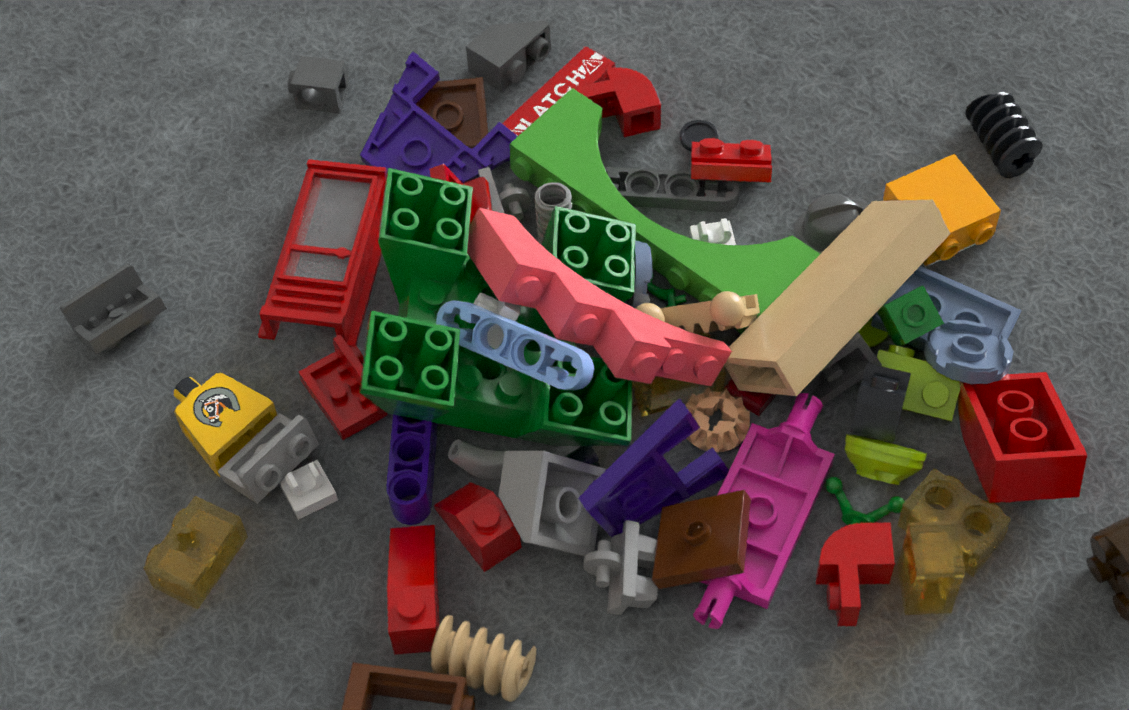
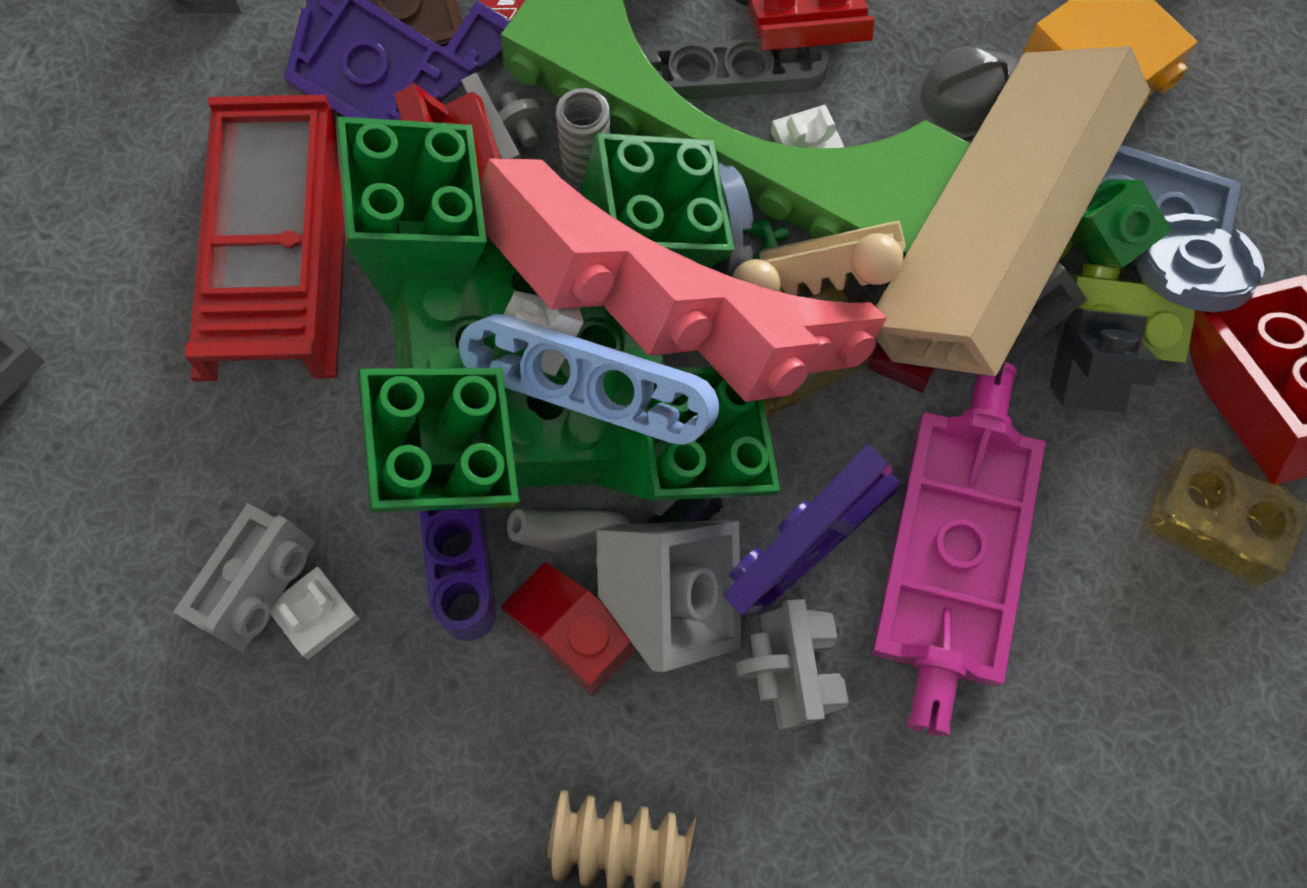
camera: 15 degrees left, 15 degrees up
(195, 552) = (158, 785): clear yellow brick -> none
(220, 416) = (159, 524): yellow torso -> none
(335, 387) = (325, 447): red bracket -> none
(412, 589) = (497, 745): red slope -> none
(702, 539) = (899, 611): reddish brown plate -> none
(727, 433) = (845, 425): light nougat gear -> none
(849, 516) = (1091, 530): green piece -> none
(854, 557) = (1098, 599): red brick -> none
(882, 459) = (1115, 440): lime piece -> none
(930, 567) = (1223, 598): clear yellow brick -> none

